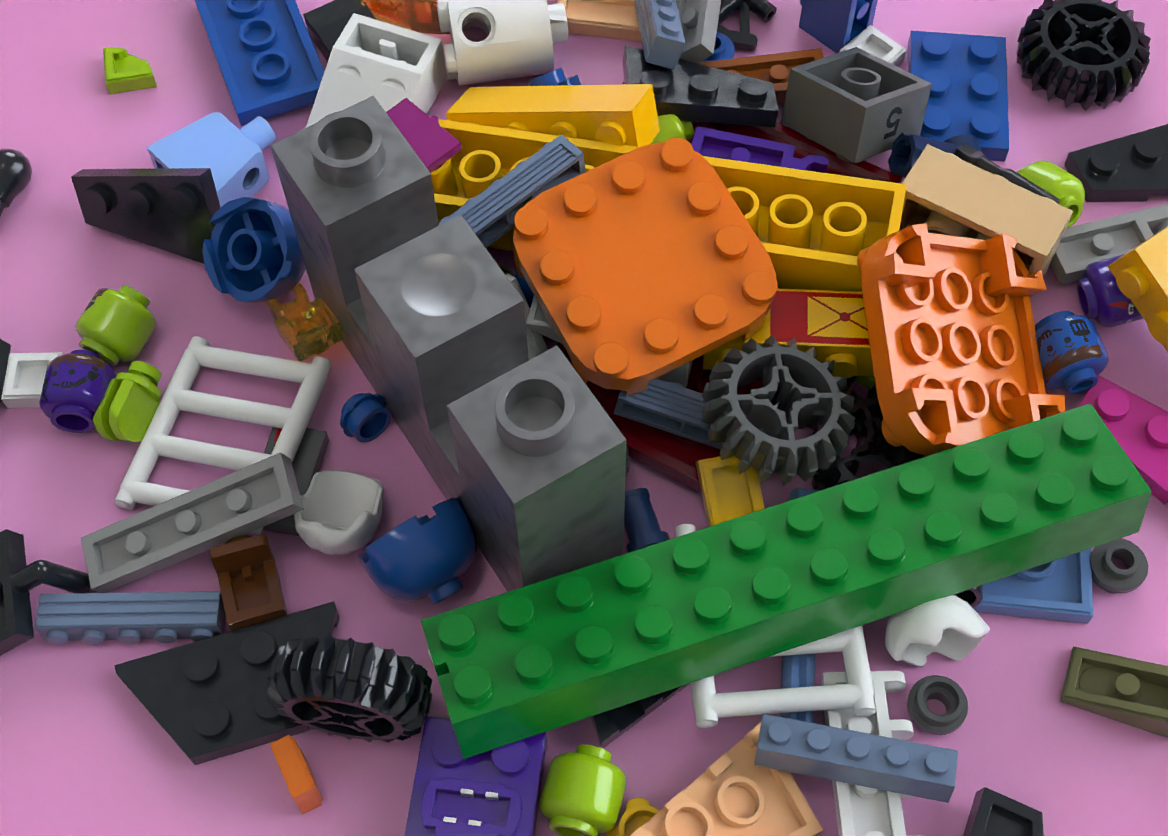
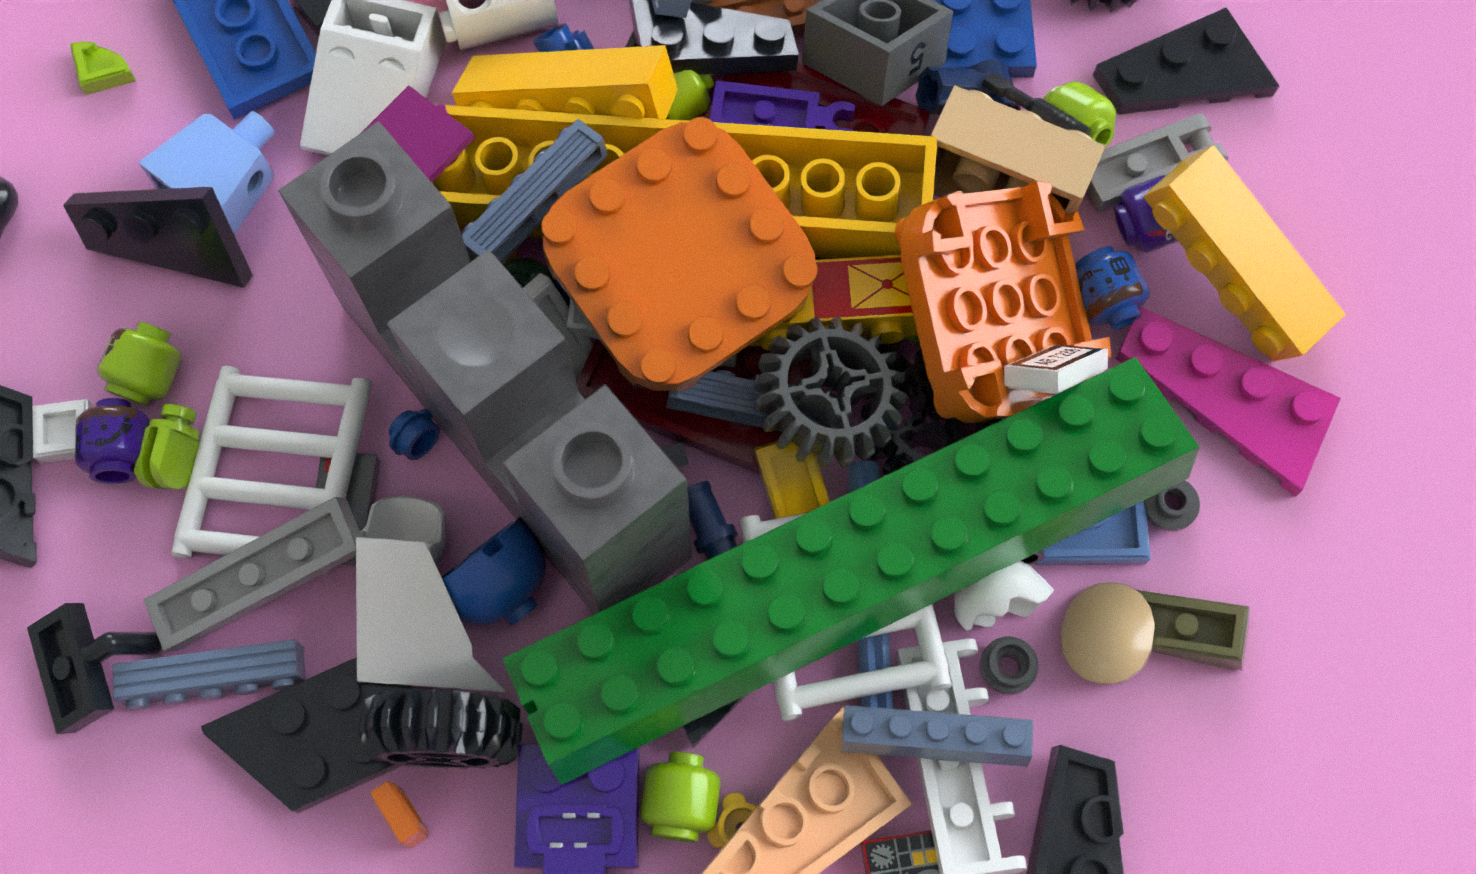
camera: 10 degrees left, 10 degrees up
(248, 581) = (321, 624): reddish brown bracket -> none
(253, 251) = (270, 270): blue cylinder -> none
(306, 325) = (338, 341): clear yellow plate -> none
(333, 576) = (409, 622): none -> white sticker
(1006, 407) = (1055, 368): none -> white tile
(1044, 685) = (1108, 633): none -> tan hat

